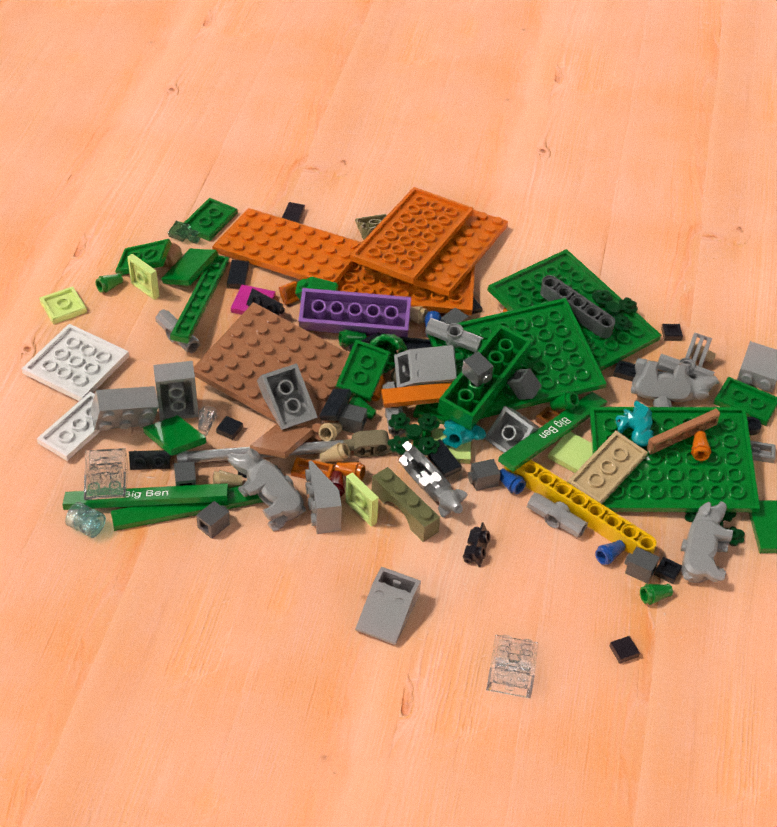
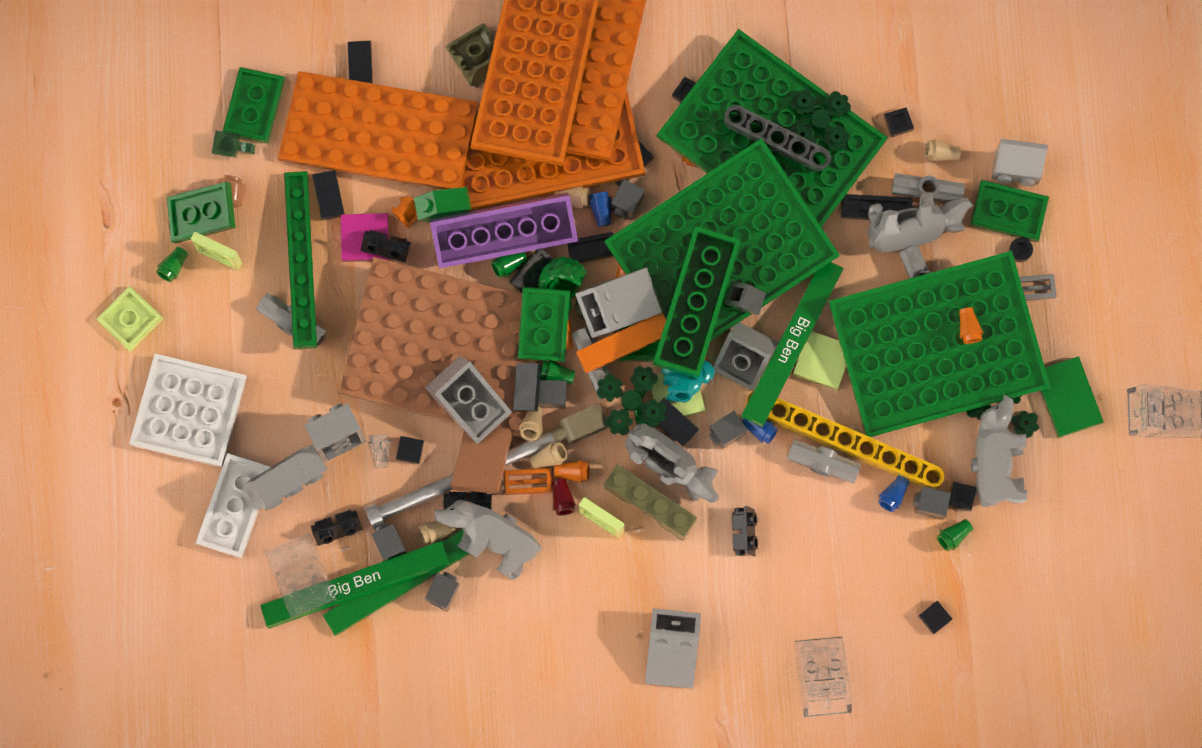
camera: 15 degrees left, 30 degrees up
(85, 519) = (301, 639): clear light blue wheel -> none
(174, 435) = (354, 489): green tile -> none
(189, 266) = (264, 206): green tile -> none
(324, 501) = (562, 535): light grey slope -> none
(454, 335) = (625, 245): light grey piece -> none
(477, 369) = (690, 312): dark grey brick -> none
(546, 416) = (780, 314): dark orange tile -> none
(566, 401) = (798, 296): green cone -> none
(608, 467) = (867, 384): tan tile -> none
(639, 420) = (894, 313): teal animal -> none
(683, 431) = (946, 313): nougat tile -> none
(702, 338) = (941, 176): light grey tile -> none

